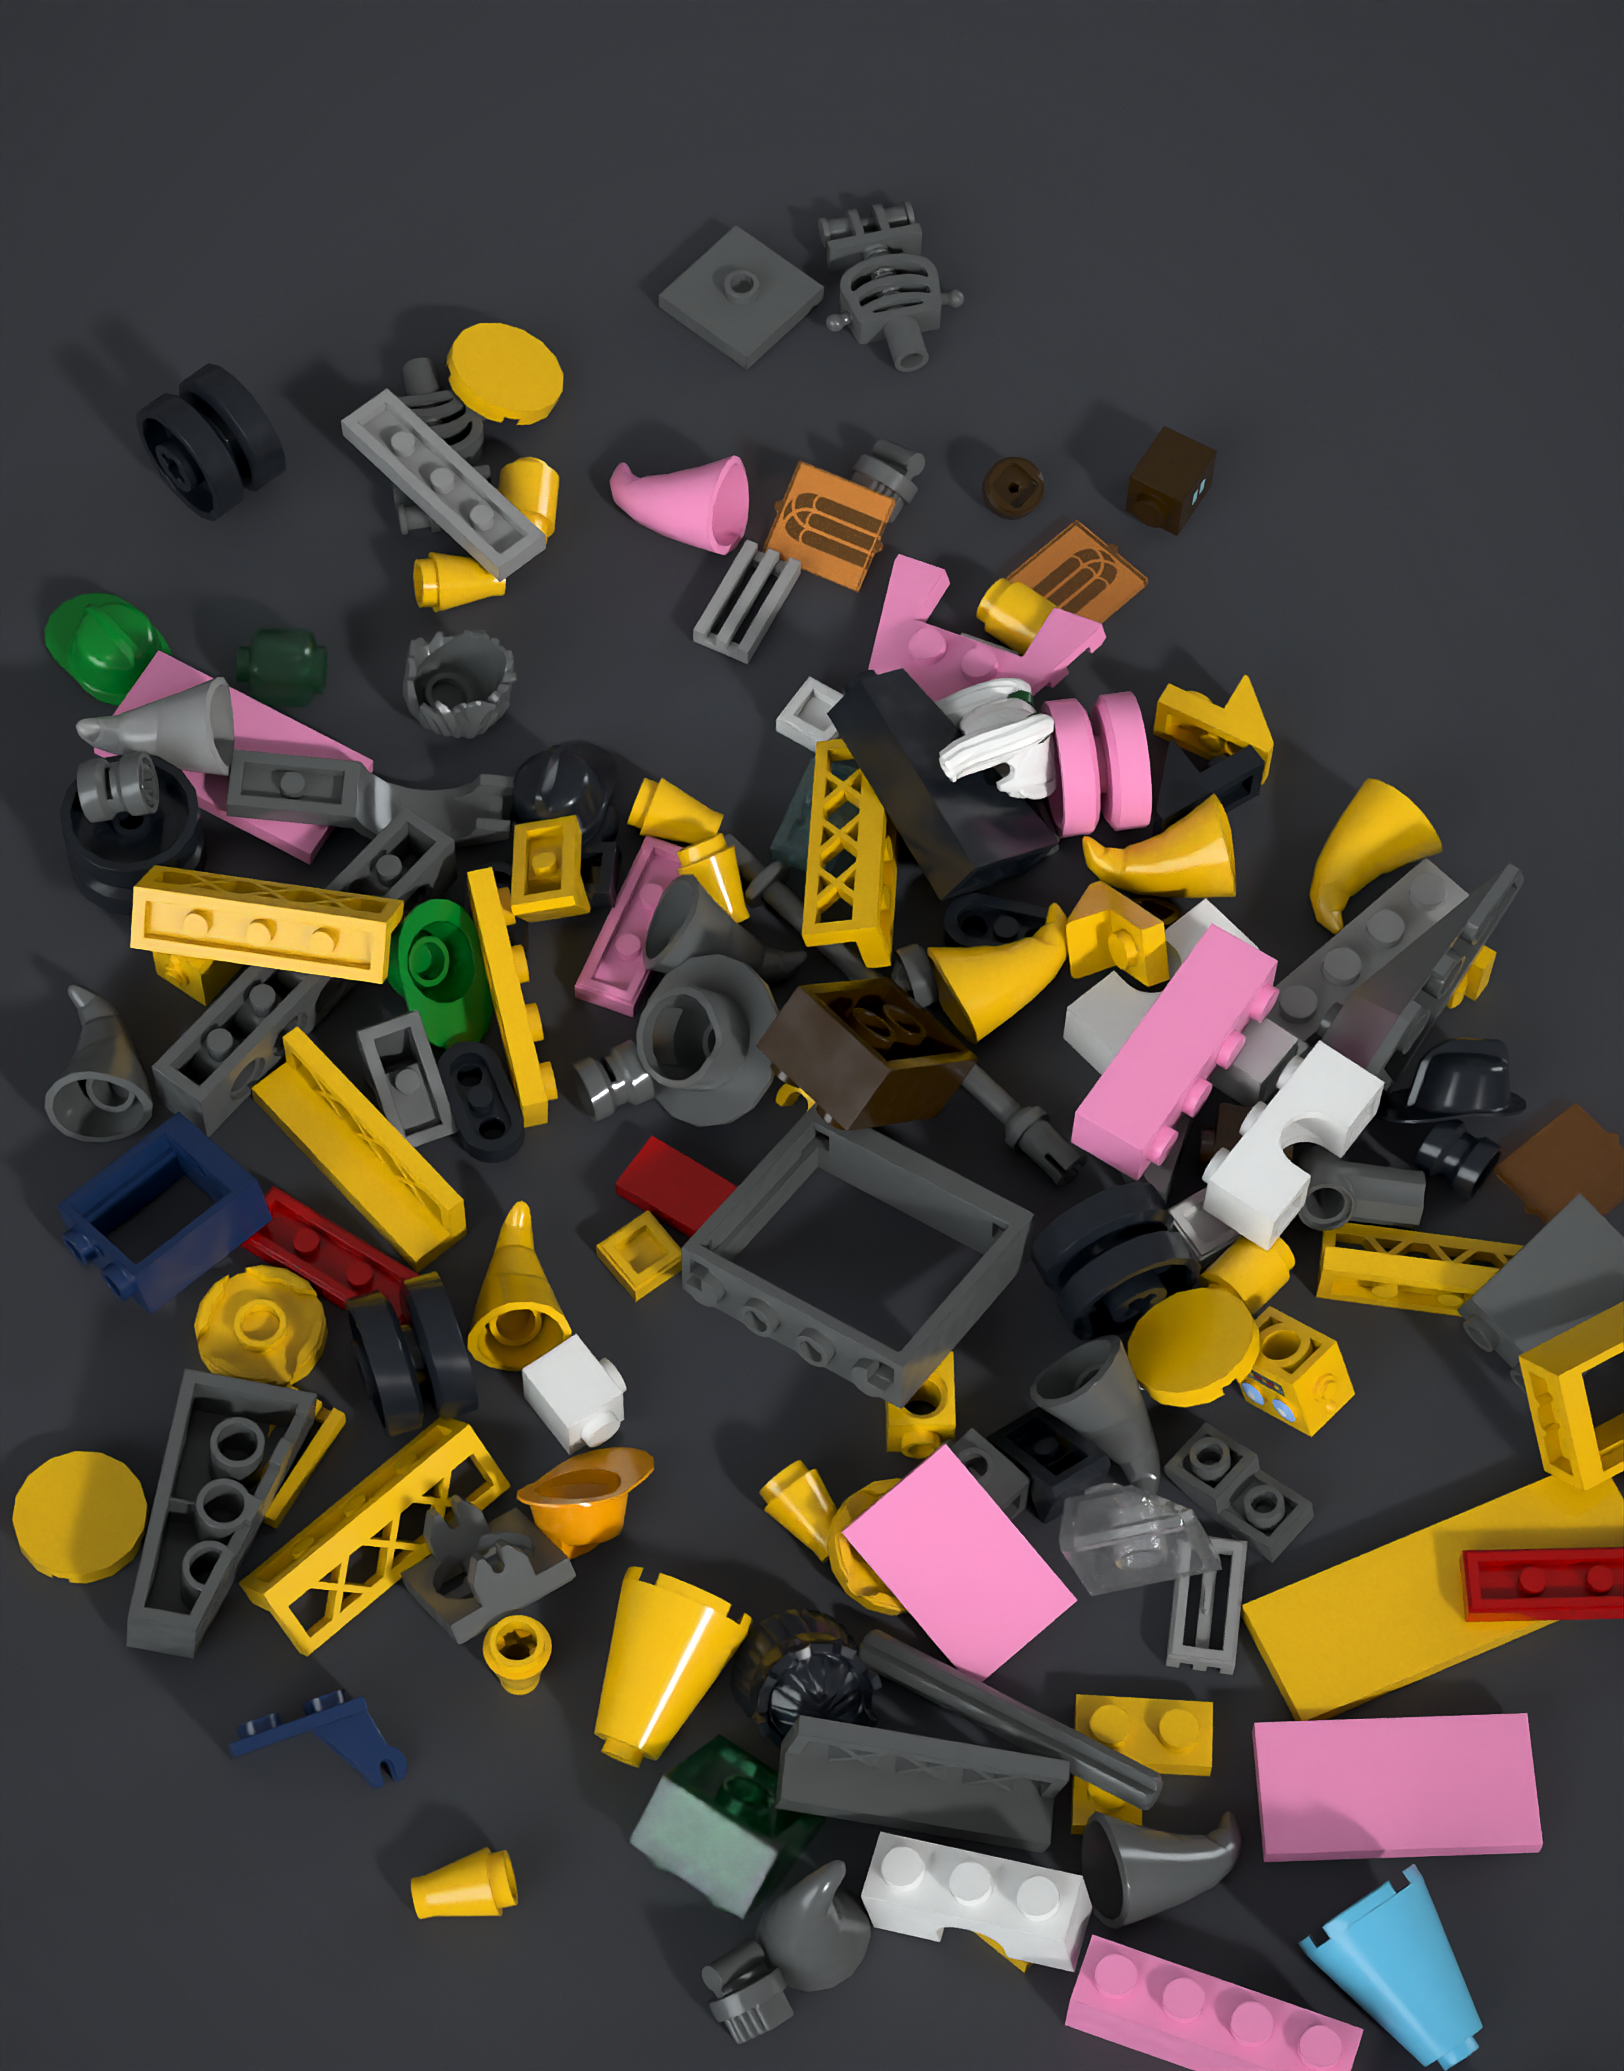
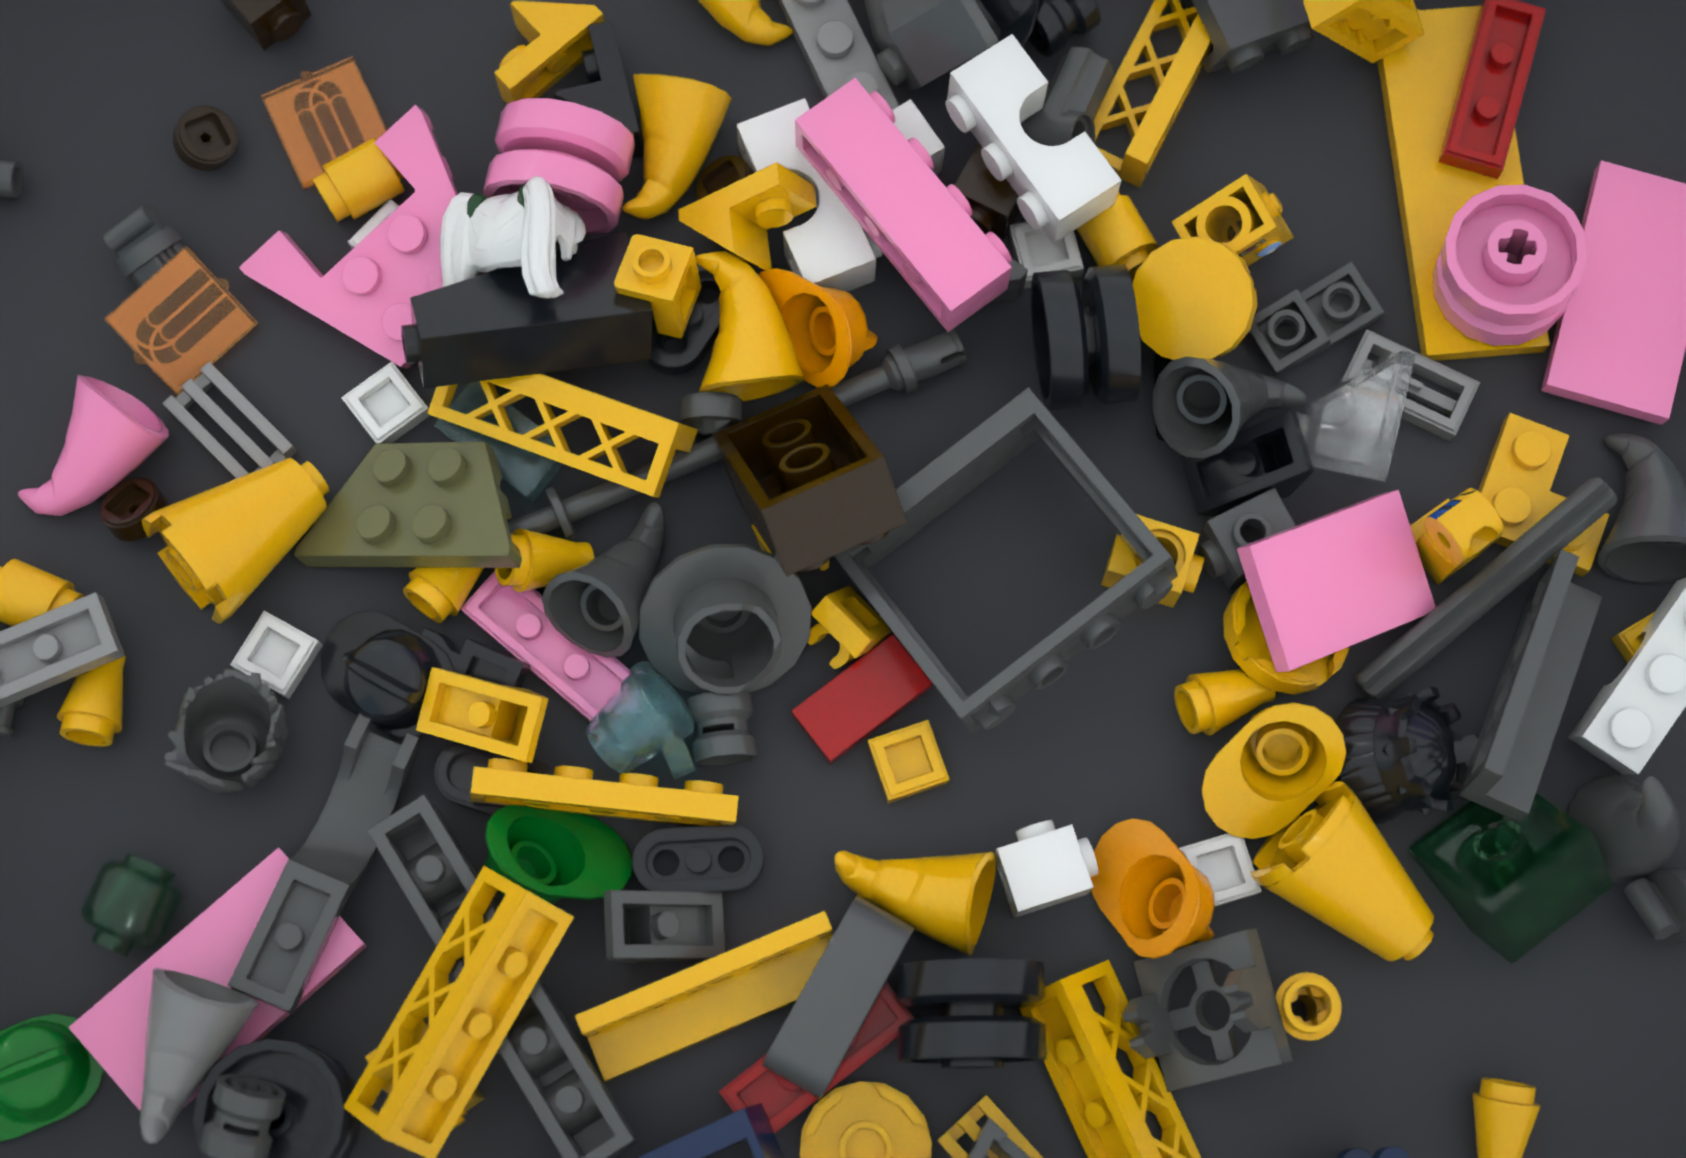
camera: 70 degrees left, 15 degrees up
(389, 1243) = (838, 997): none -> dark grey beam
(550, 708) = (277, 653): none -> white tile
(590, 1005) = (641, 723): none -> clear light blue piece
(634, 1546) = (1226, 866): none -> white tile
(640, 551) = (128, 505): none -> dark brown tile
(646, 630) = (237, 532): none -> yellow cone
(721, 763) = (417, 510): none -> olive wing
(746, 1147) = (850, 623): none -> yellow tile
(746, 1558) = (1273, 770): none -> yellow piece
(1012, 878) = (665, 277): none -> yellow bracket
(1037, 1039) = (823, 324): none -> light orange piece
(1053, 1665) = (1456, 533): none -> yellow leg
(1355, 1630) = (1509, 264): none -> bright pink wheel

